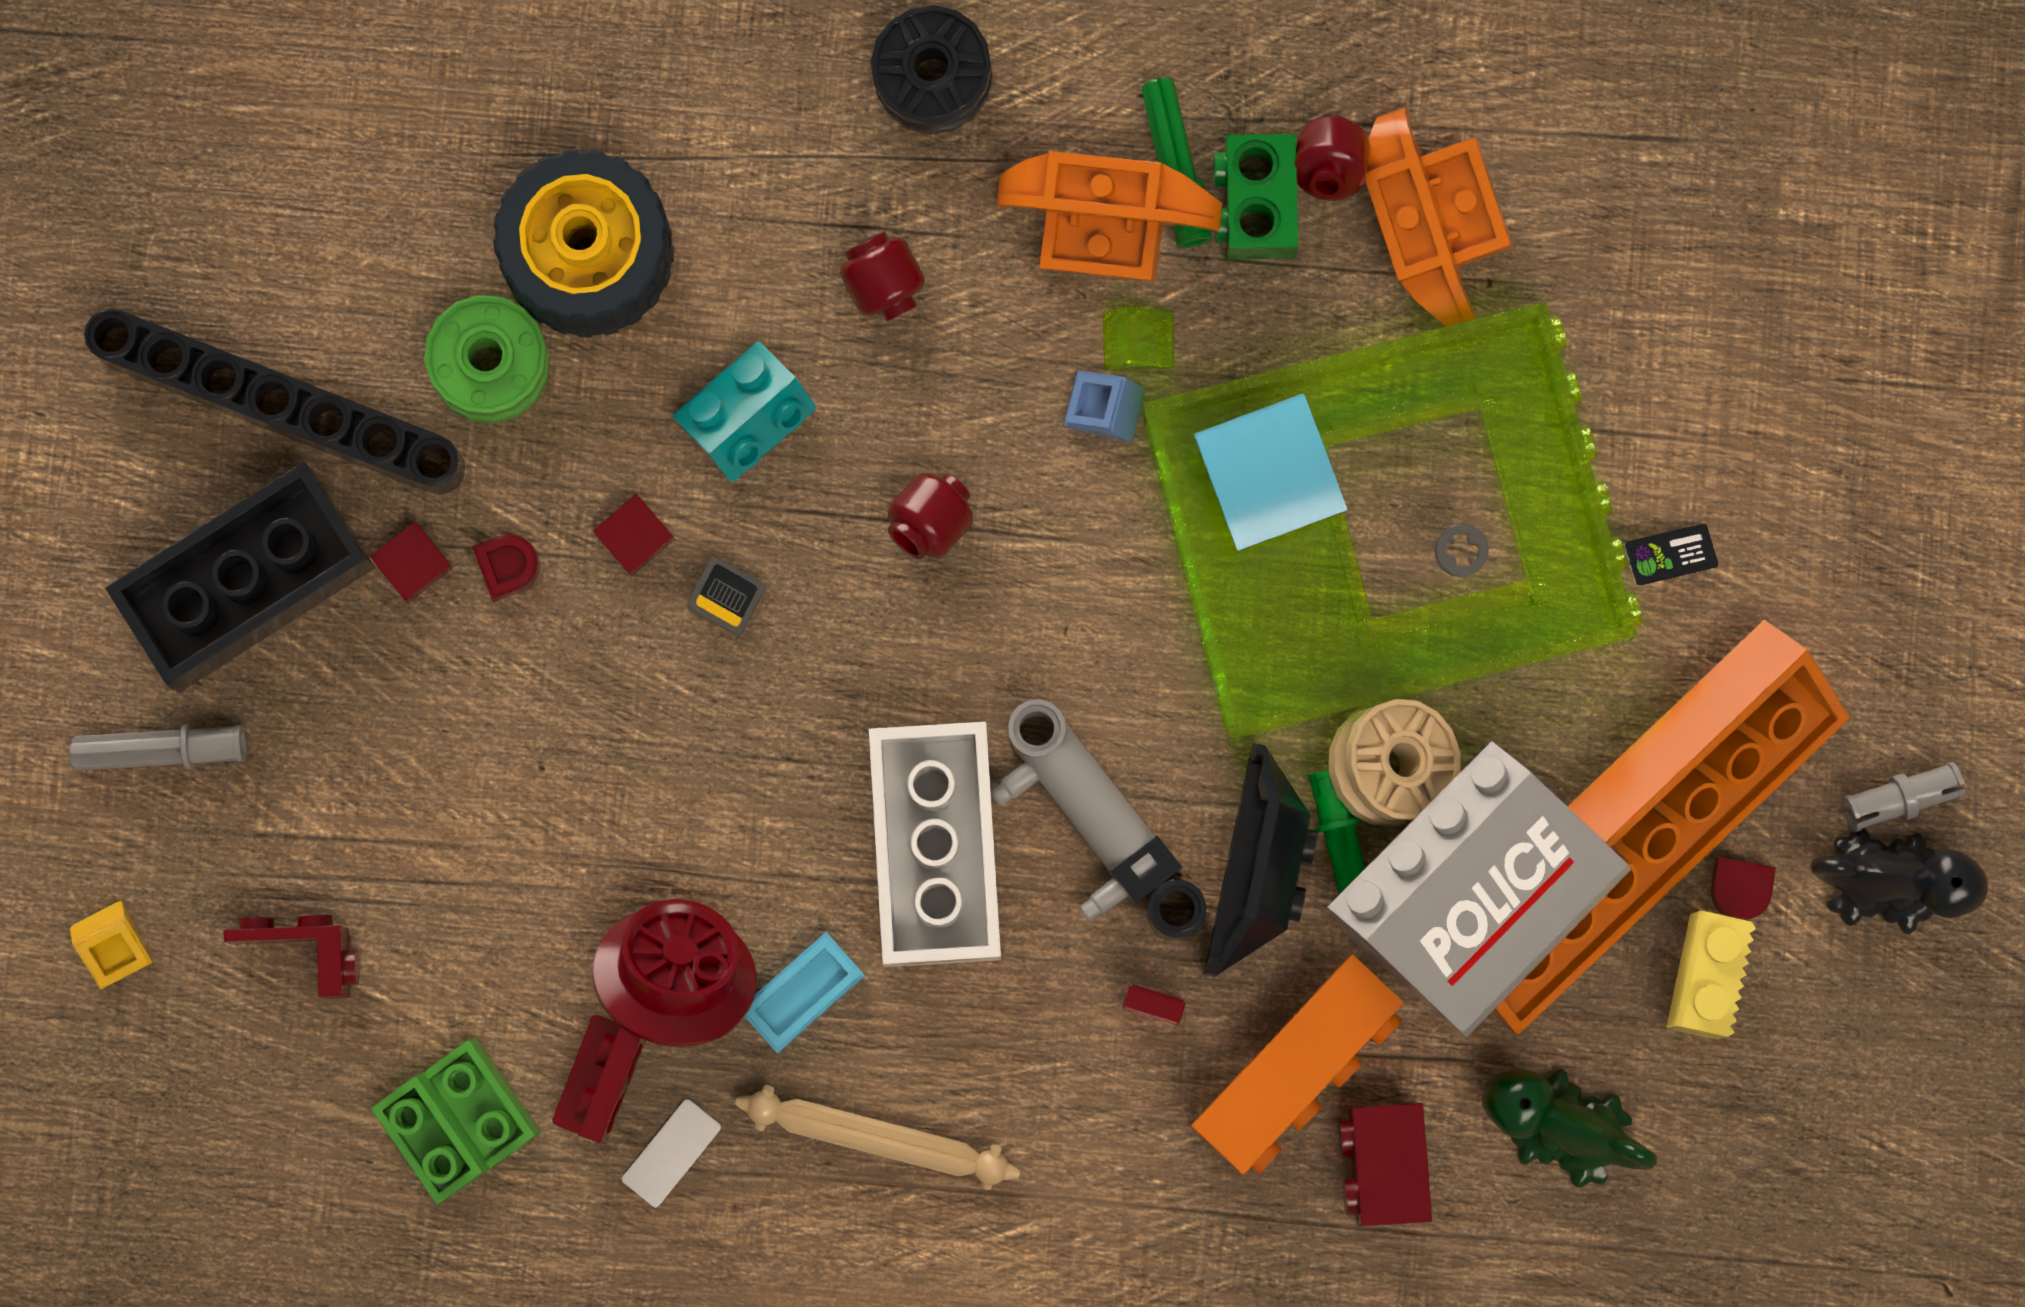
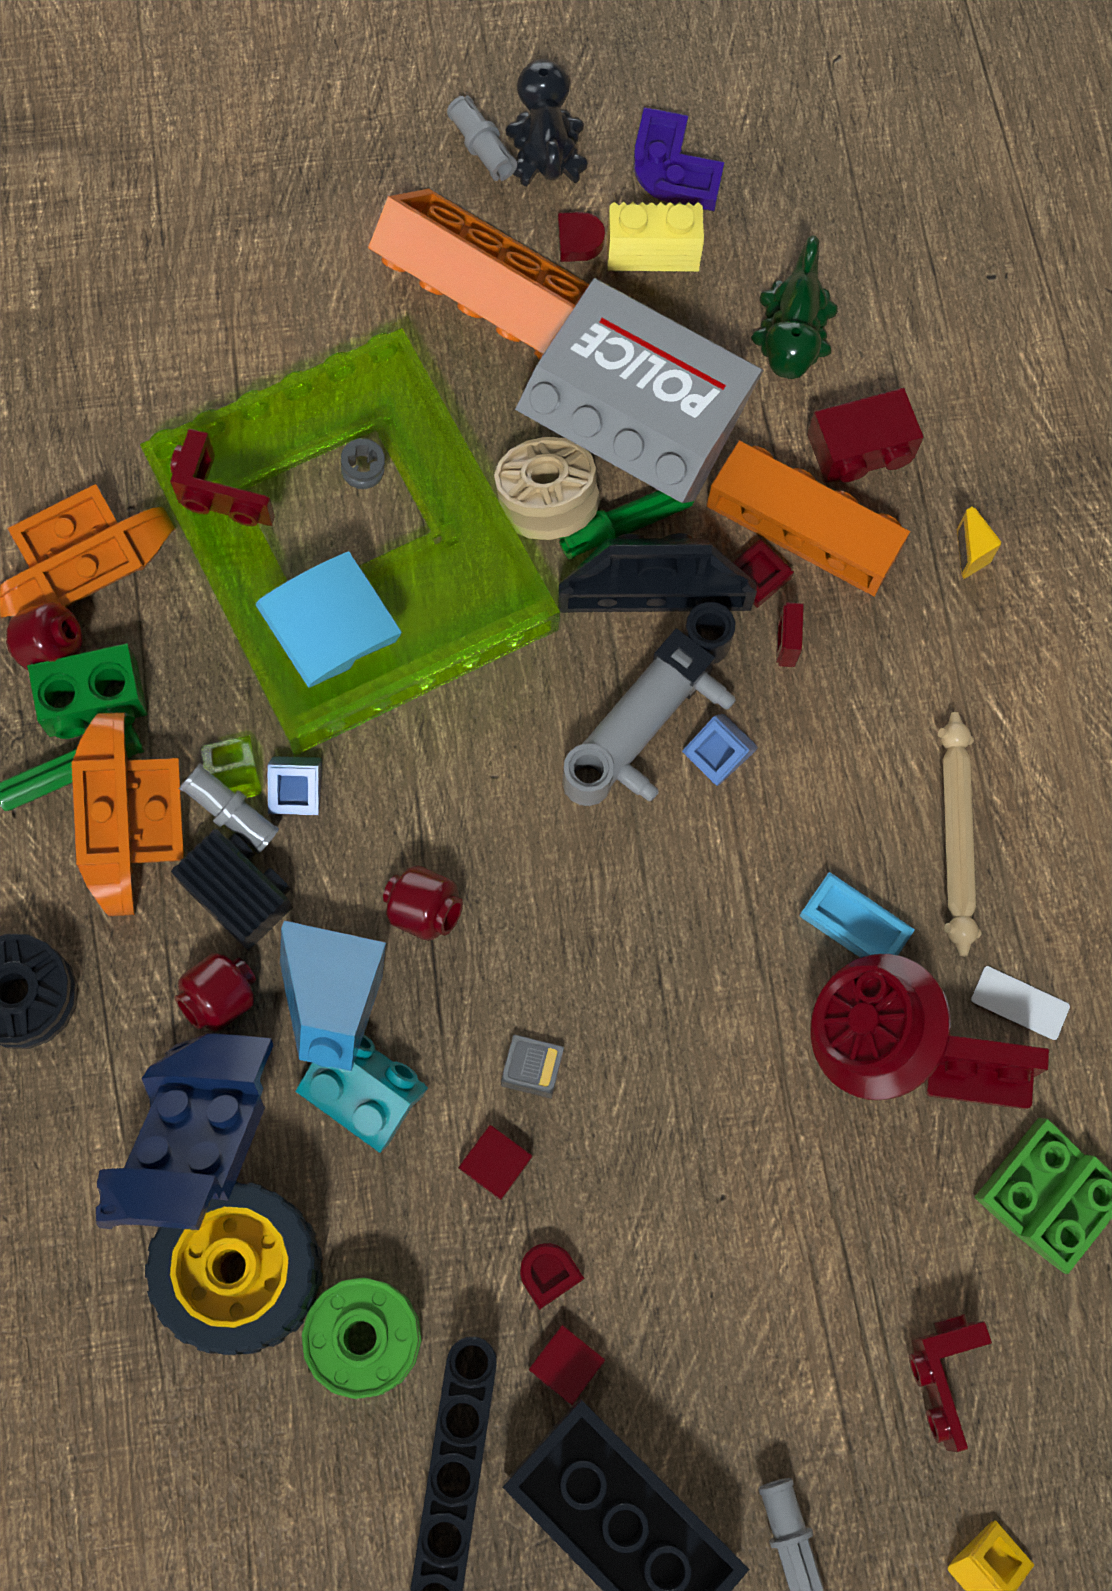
camera: 105 degrees left, 10 degrees down
(725, 220) = (193, 1136): none -> dark blue piece
(849, 394) = (329, 990): none -> dark azure slope
(934, 844) = (708, 831): white brick -> none
(994, 315) = (232, 888): none -> black brick
(1040, 894) = (719, 748): none -> medium blue slope
(1084, 326) = (229, 808): none -> light grey pin
(1219, 1259) = (975, 542): none -> yellow slope
(1245, 994) = (765, 569): none -> dark red tile
(1491, 351) = (190, 472): none -> dark red bracket
(1671, 554) = (329, 327): black sticker -> none
(1819, 1013) = (665, 170): none -> dark purple plate

